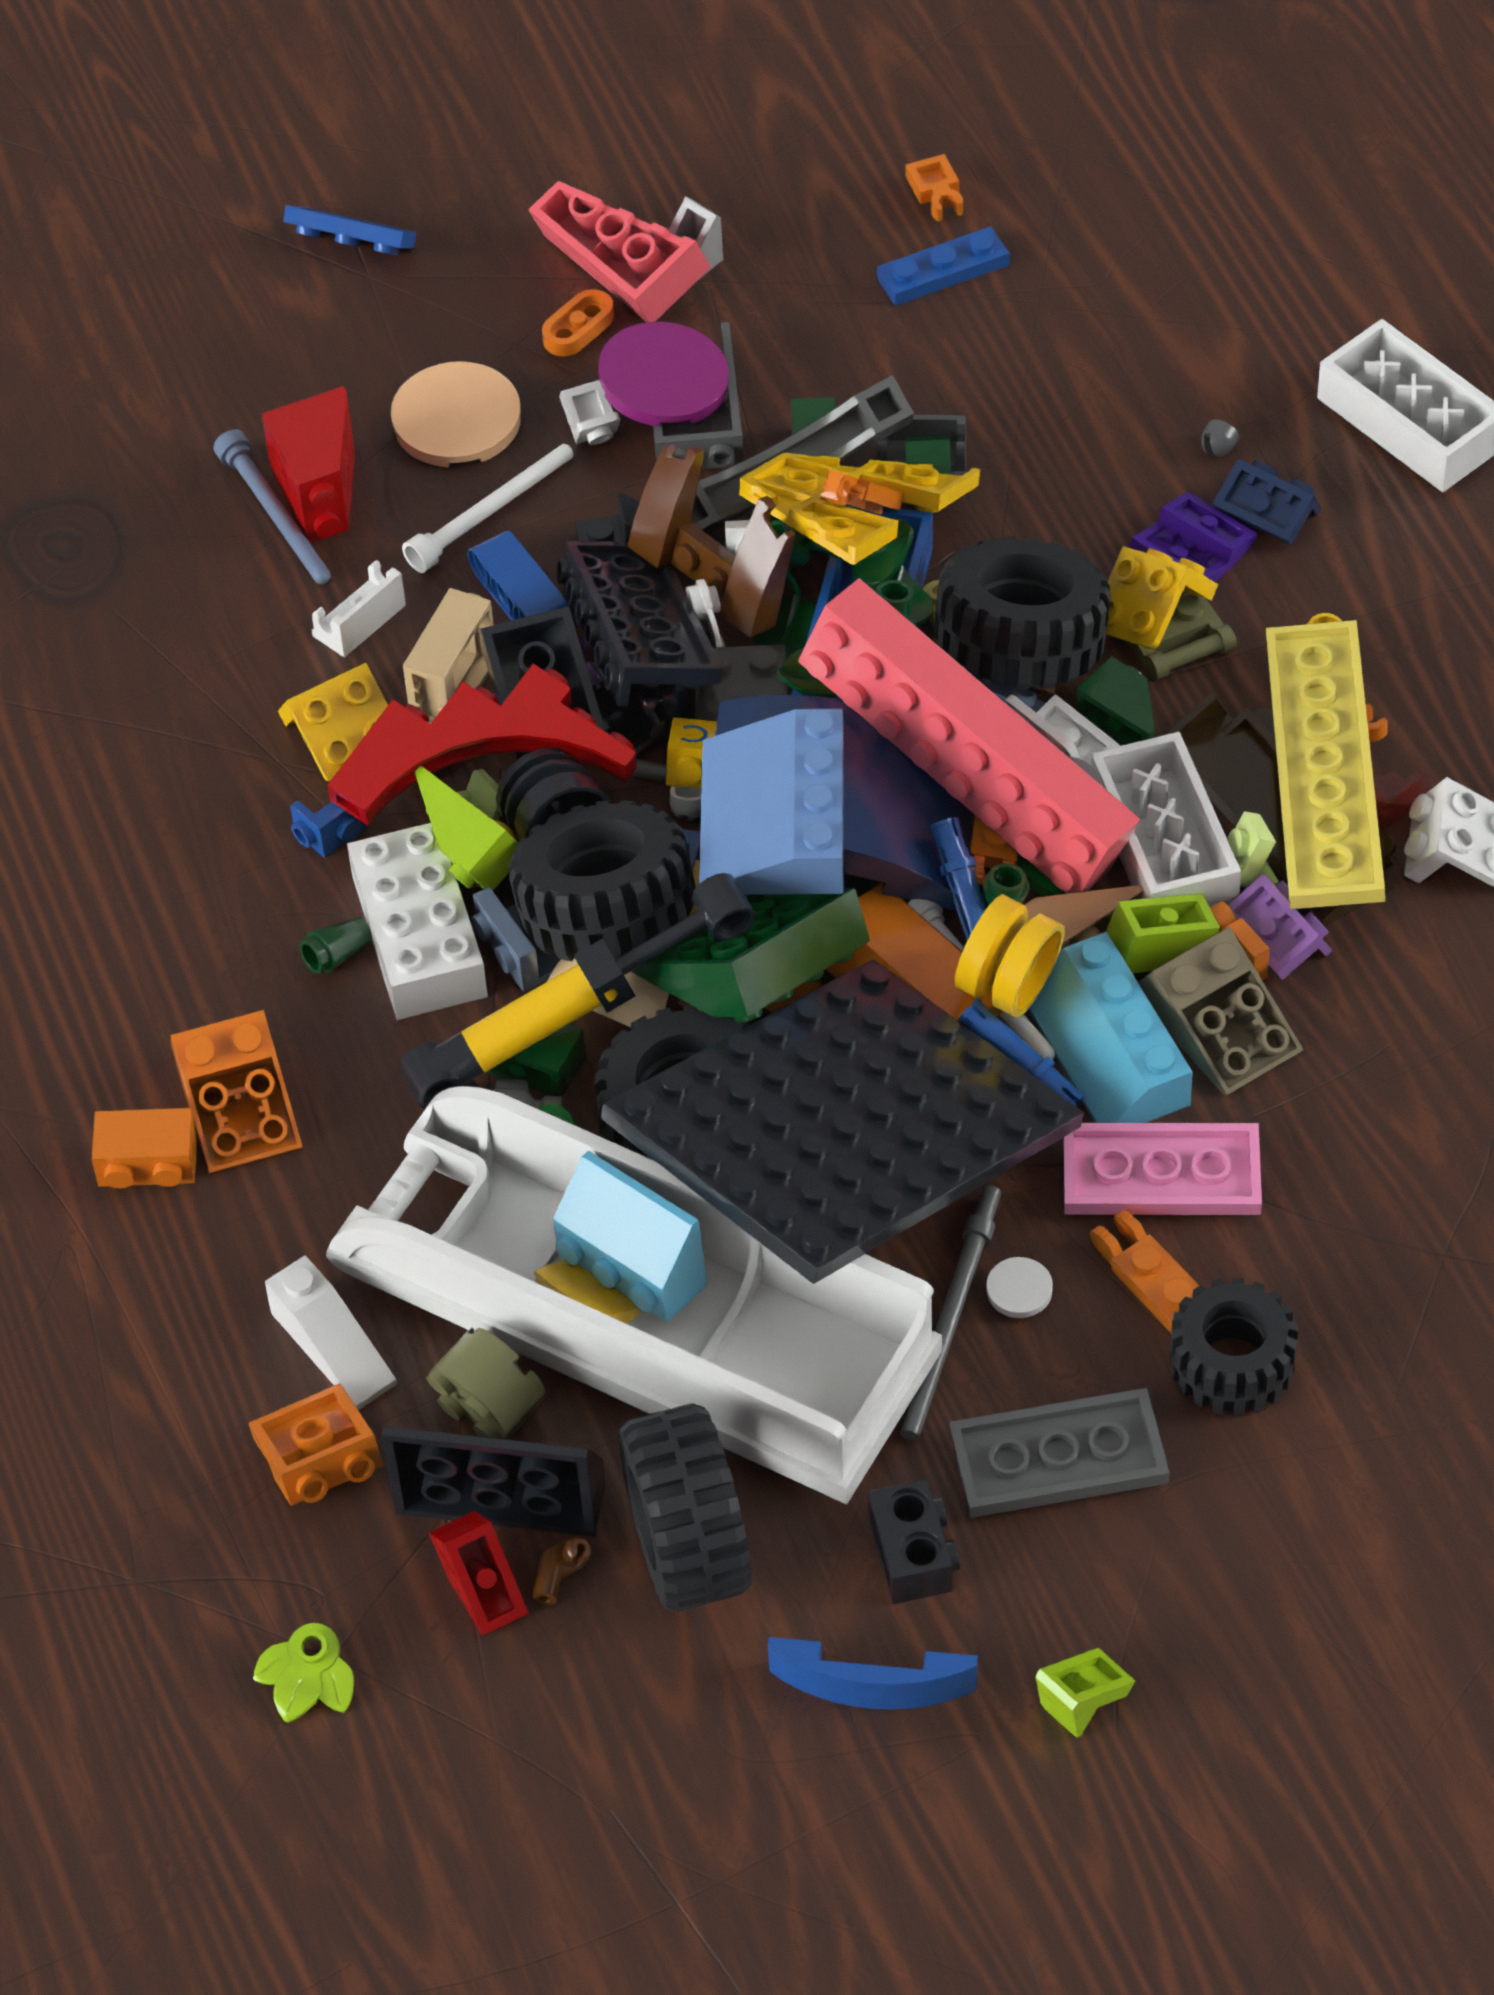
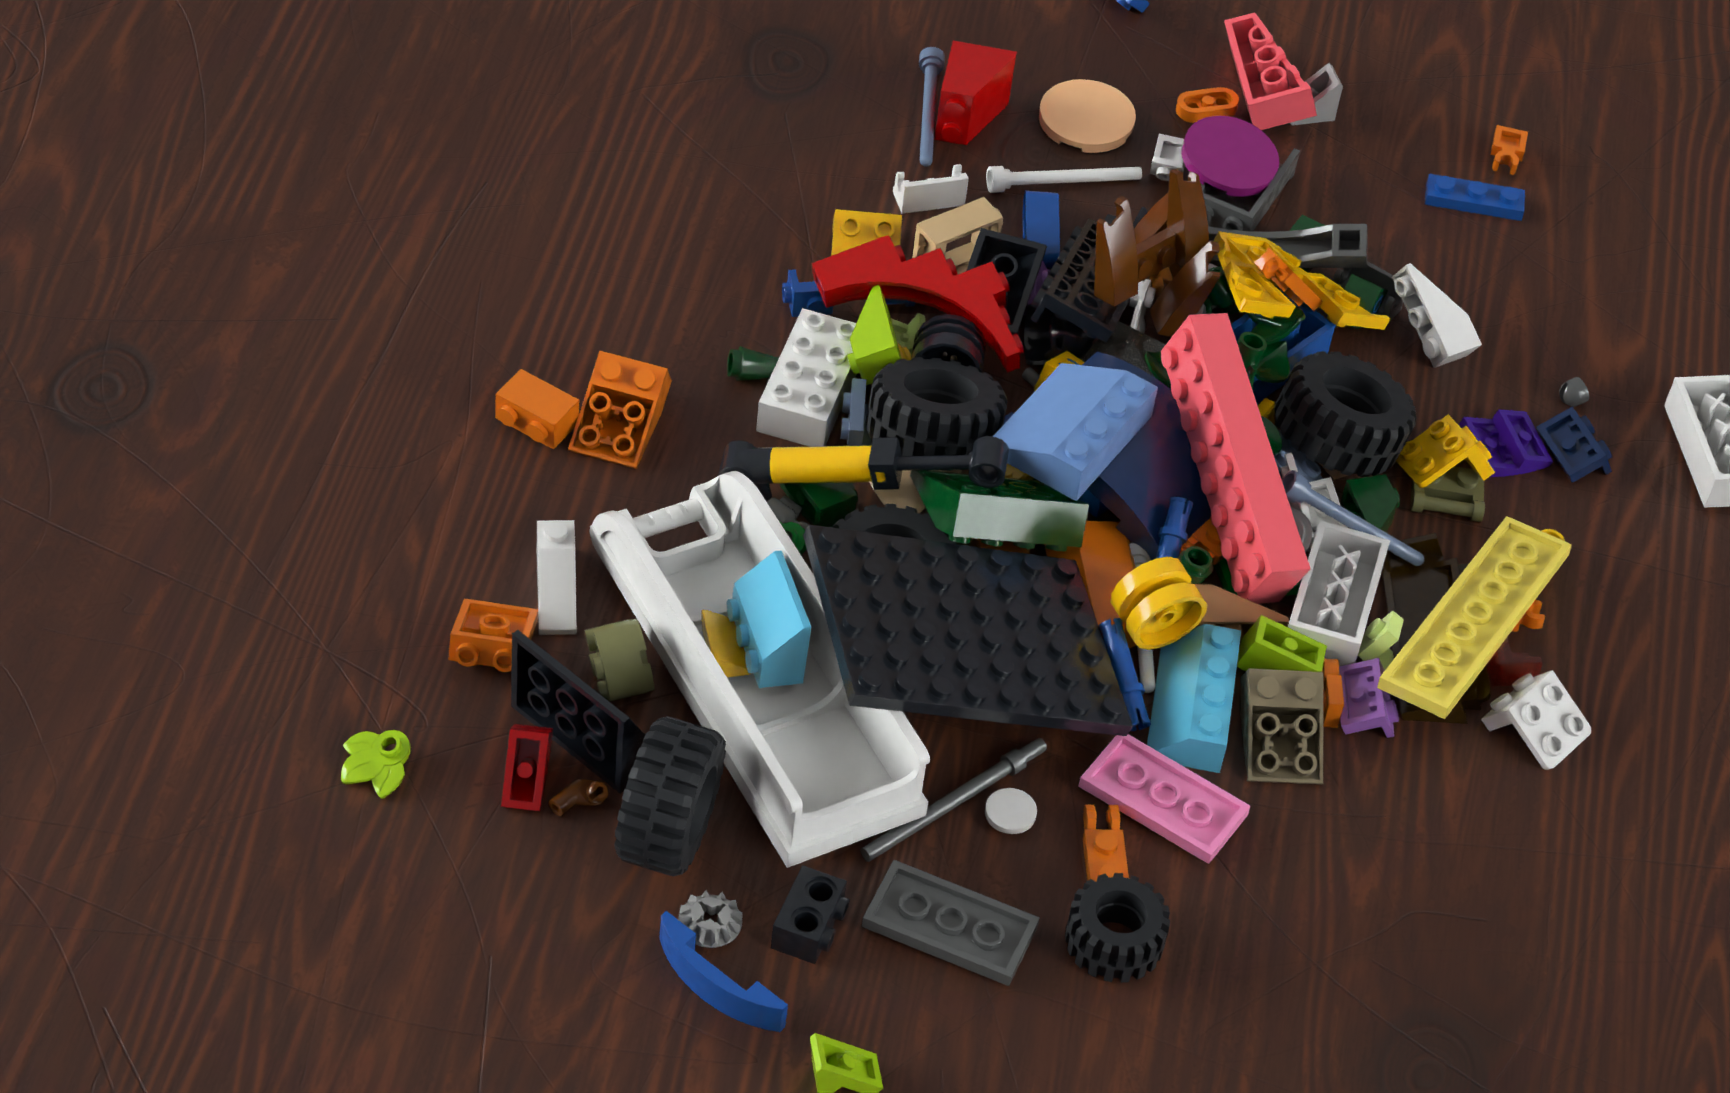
camera: 25 degrees right, 5 degrees down
(679, 566) = (1123, 263): none -> reddish brown wedge
(831, 1605) = (711, 933): none -> light grey gear
(1026, 439) = (1439, 321): none -> white slope
(1065, 734) = (1300, 491): none -> sand blue piece

